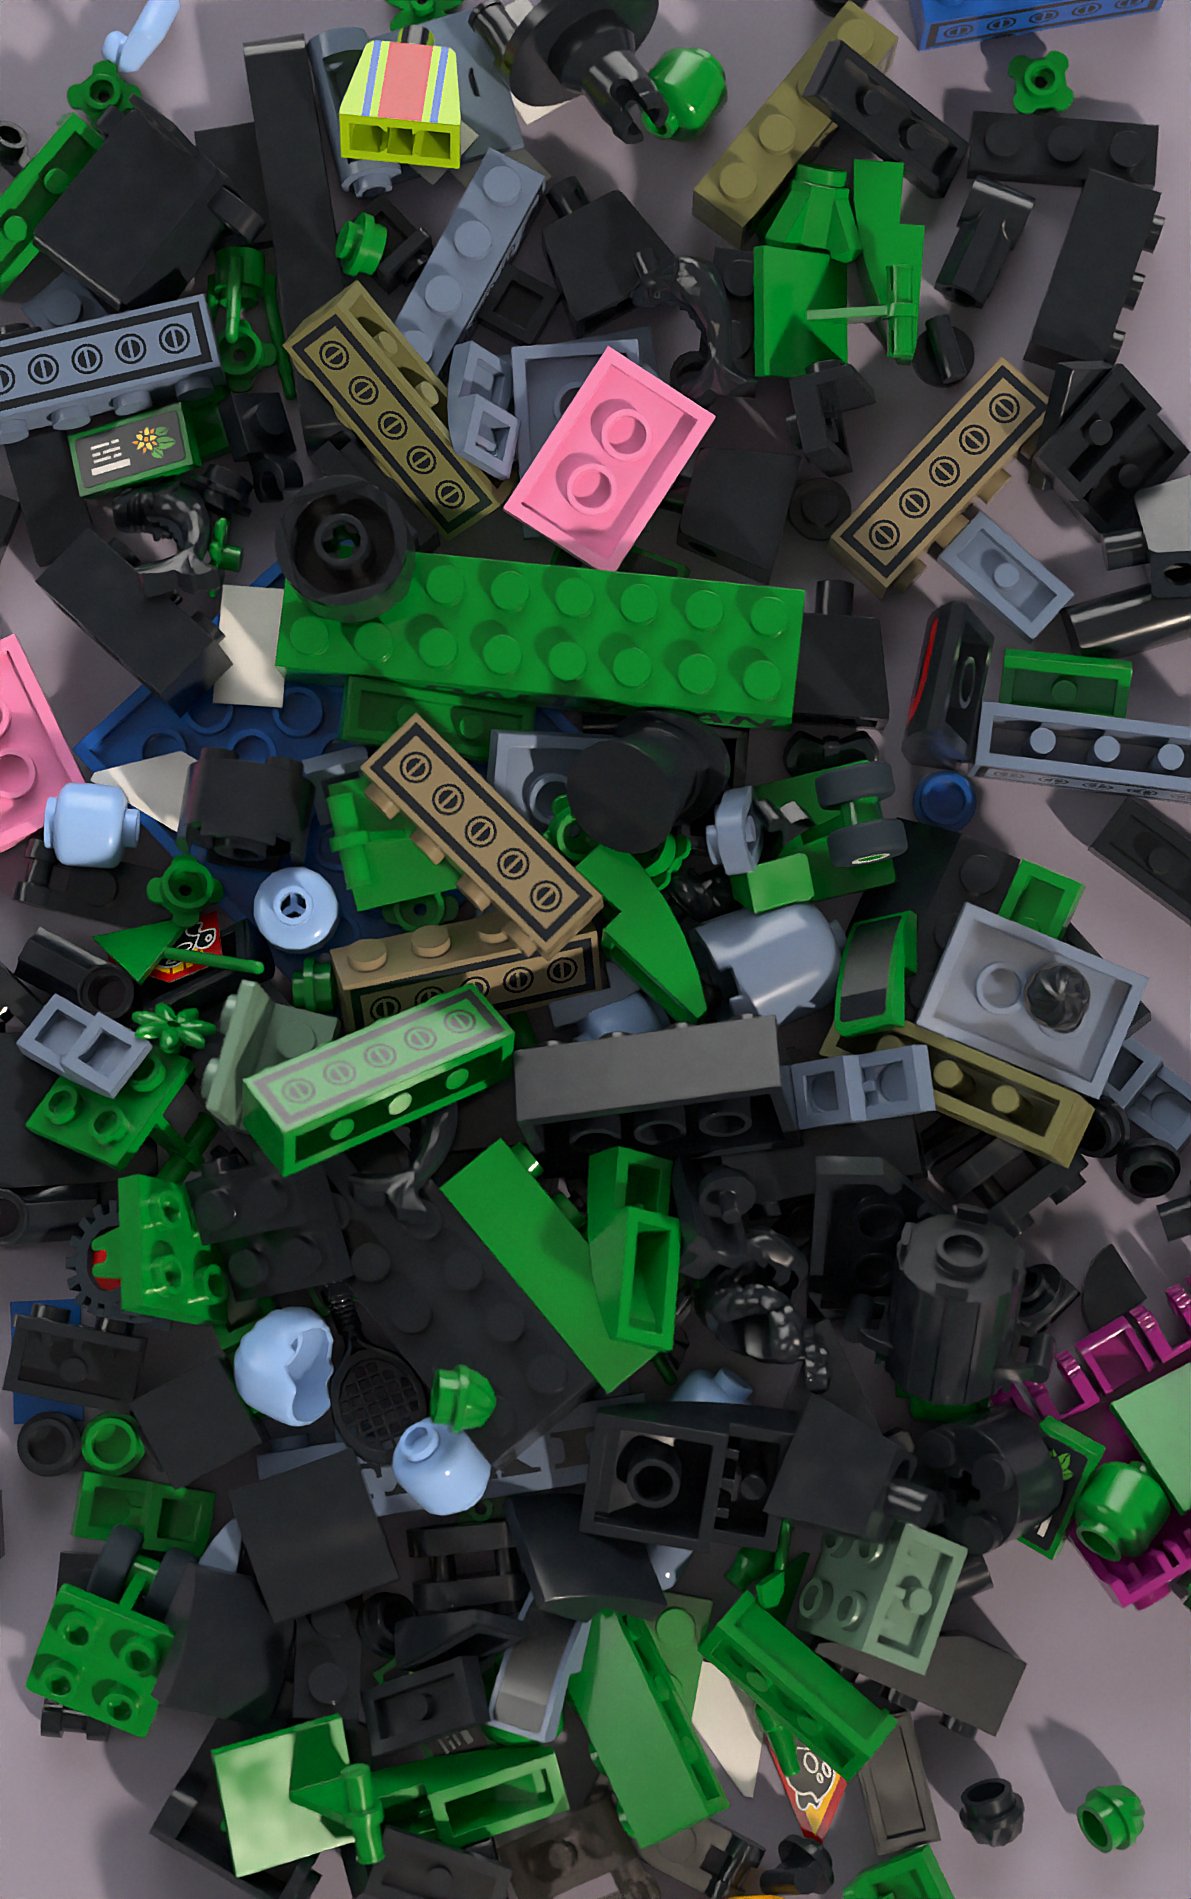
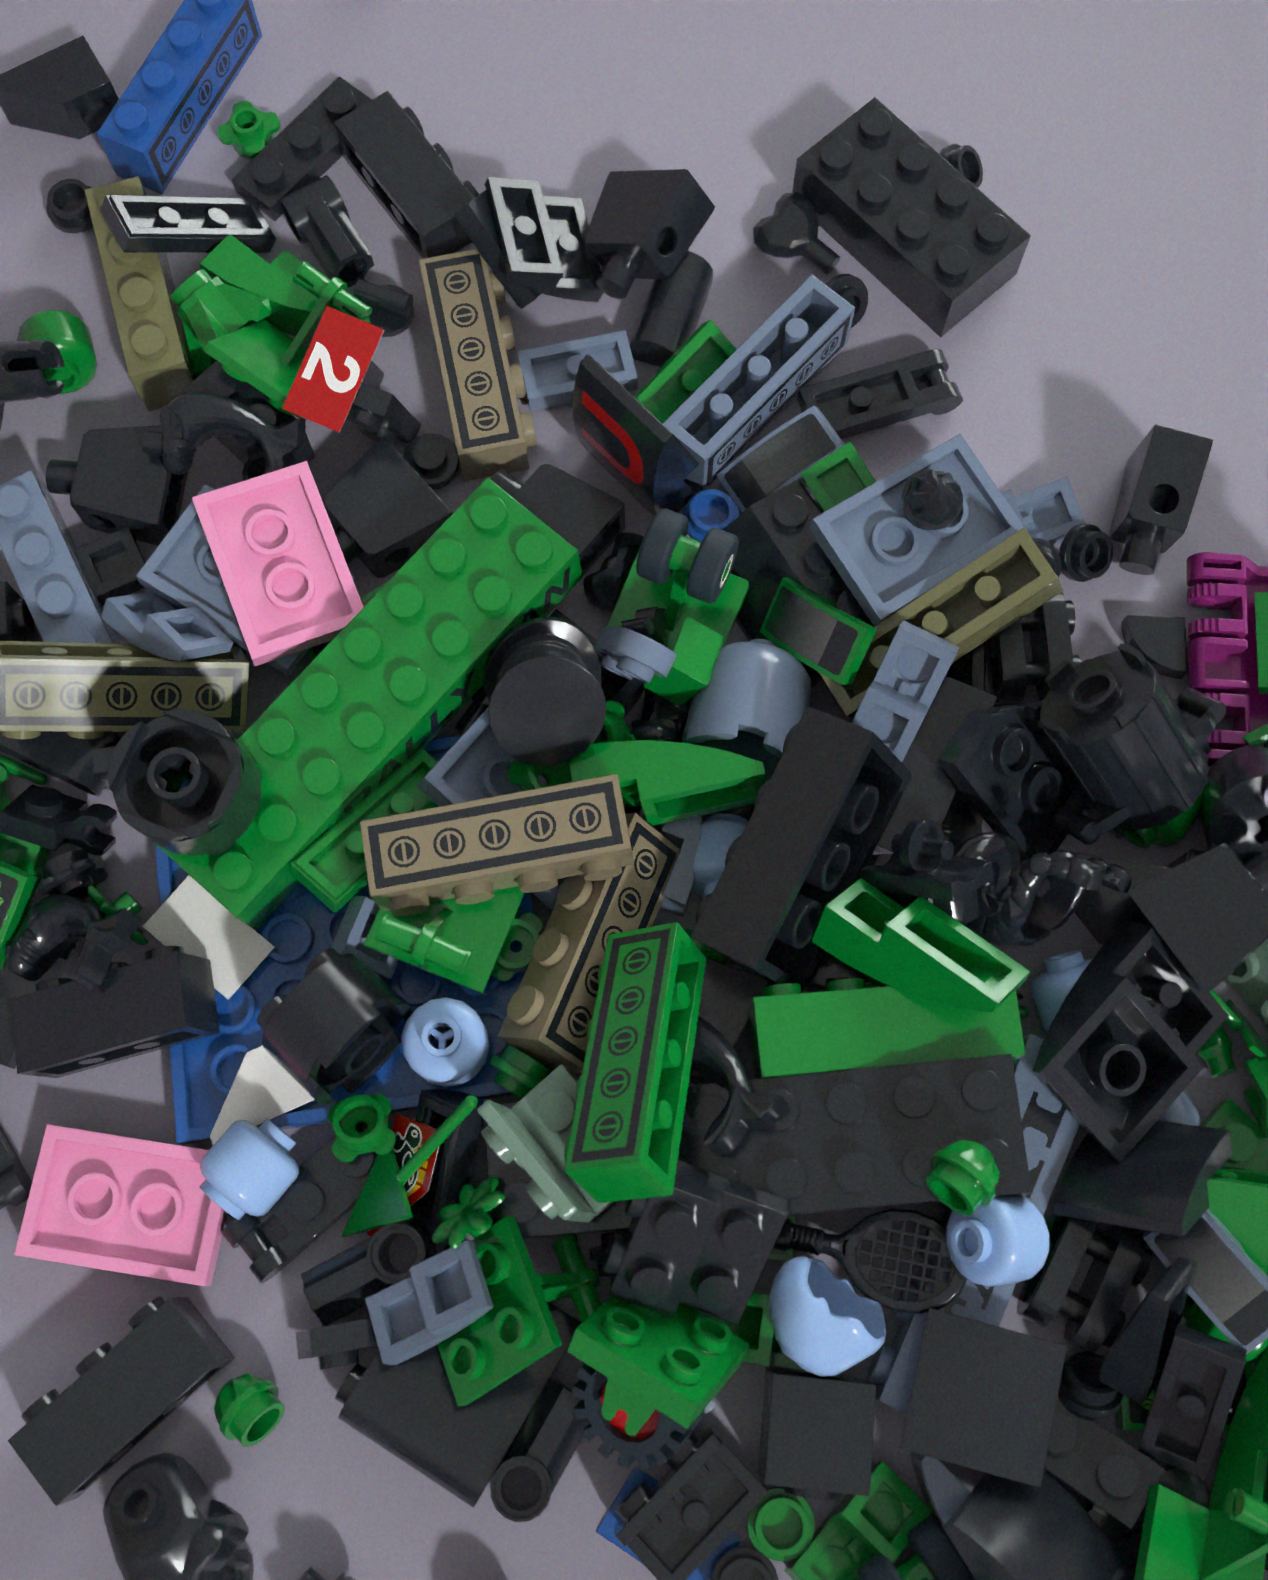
camera: 55 degrees left, 10 degrees down
(814, 376) = (333, 369): none -> red sticker
(1041, 831) = (779, 458): none -> slope

